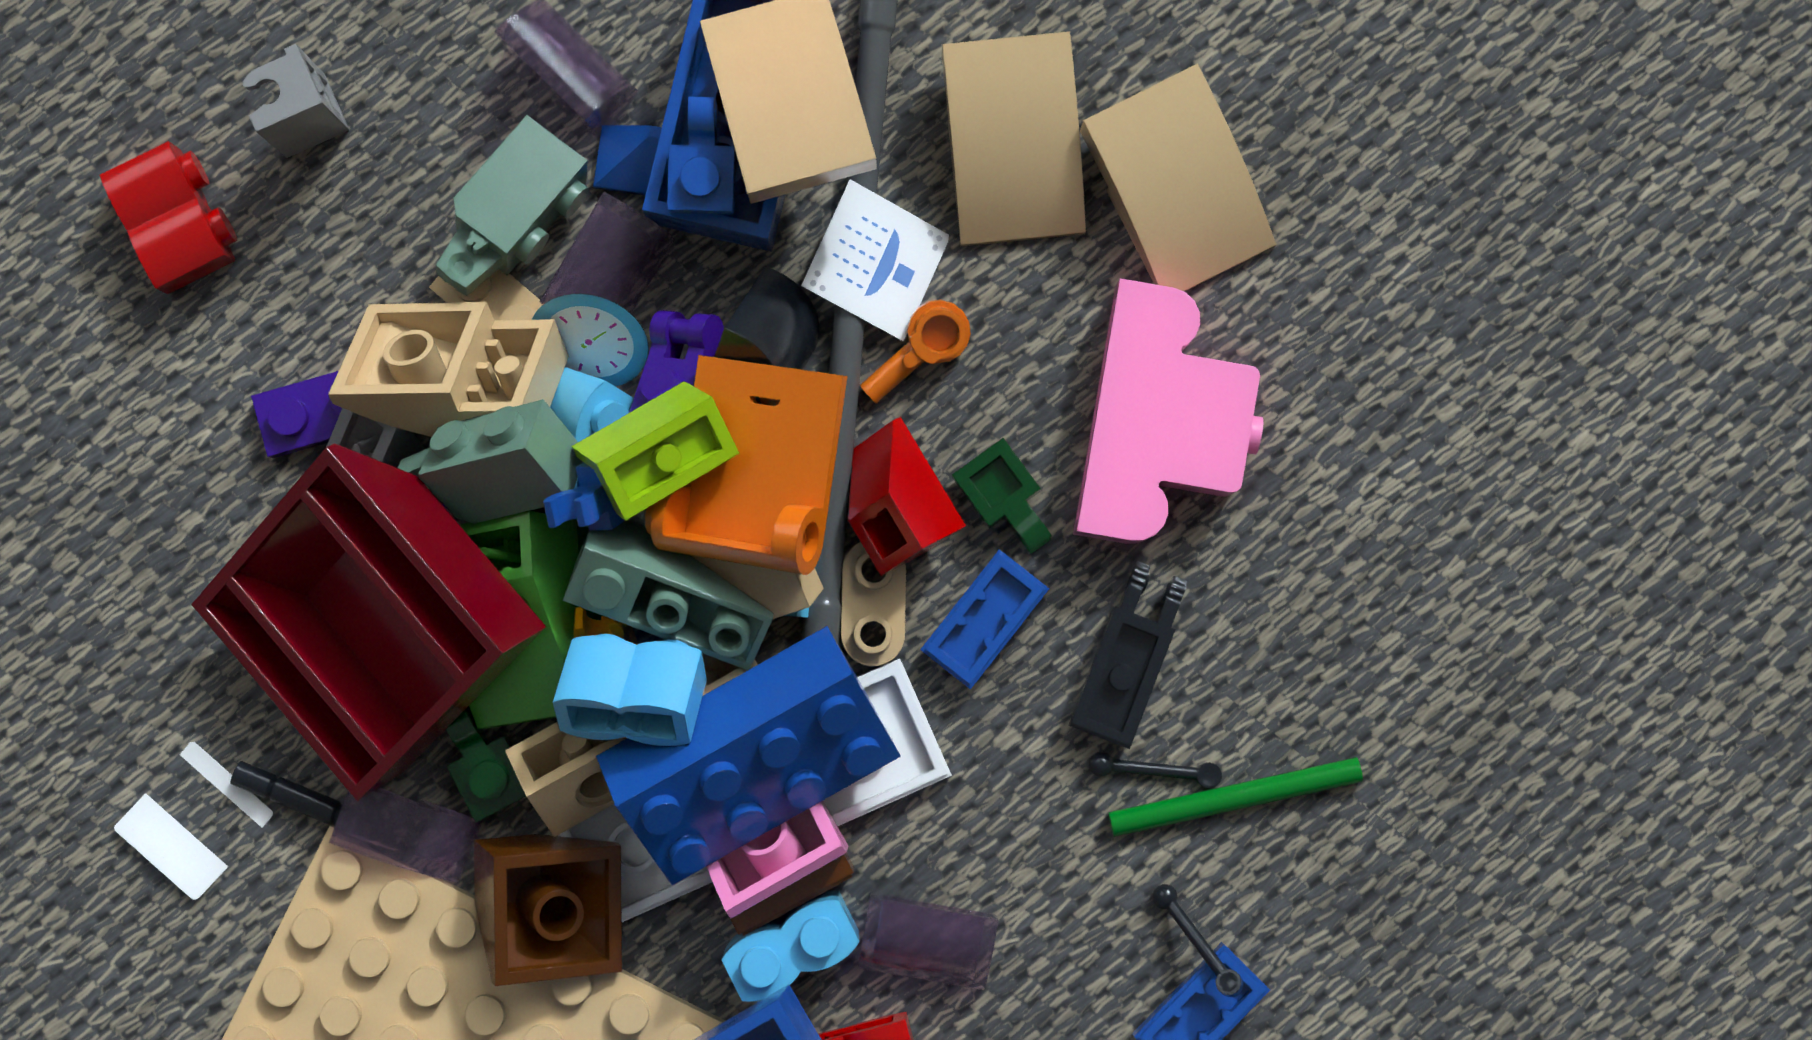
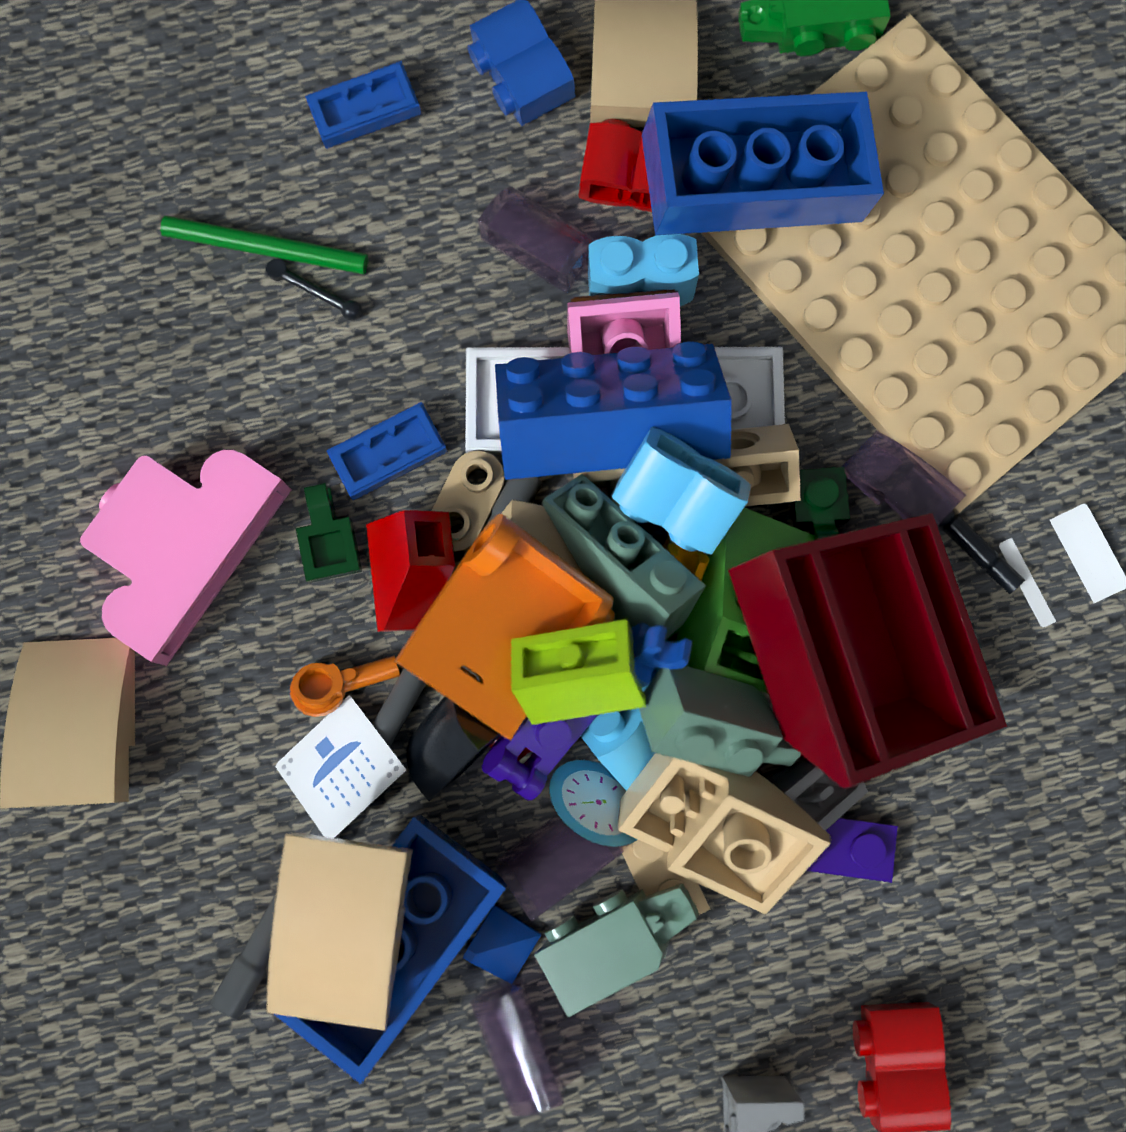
camera: 155 degrees left, 5 degrees down
(548, 907) = (815, 376): reddish brown slope -> none
(701, 173) = (440, 897): blue plate -> none
(1014, 138) = (181, 820): tan slope -> none
(1127, 663) = (293, 374): black hinge -> none
(1227, 980) = (330, 108): black hinge -> none

